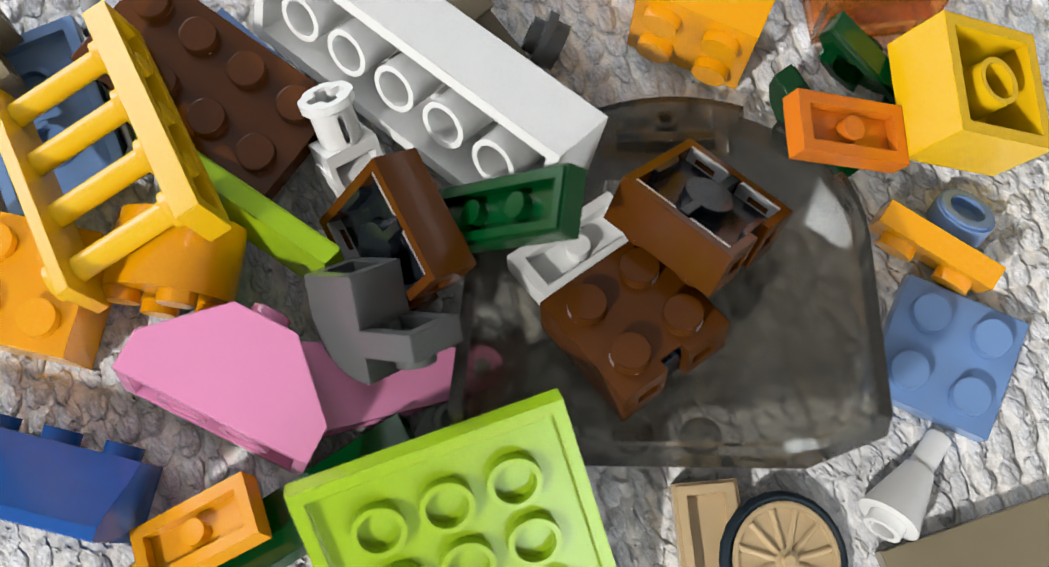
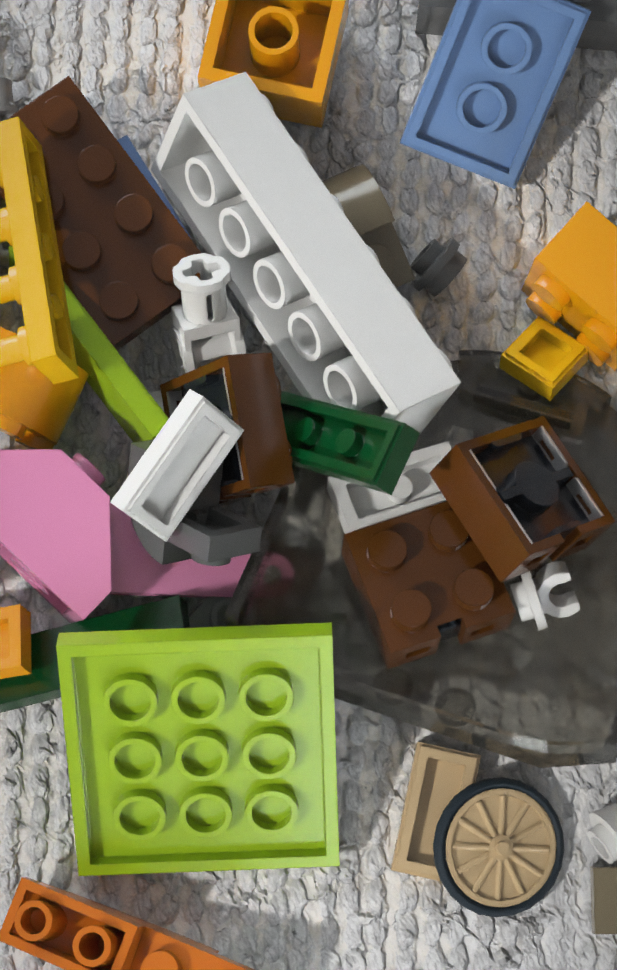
camera: 20 degrees right, 5 degrees up
(354, 276) = (177, 465): none -> white tile
(670, 92) = (544, 358): none -> yellow tile
(740, 305) = (534, 595): none -> white plate

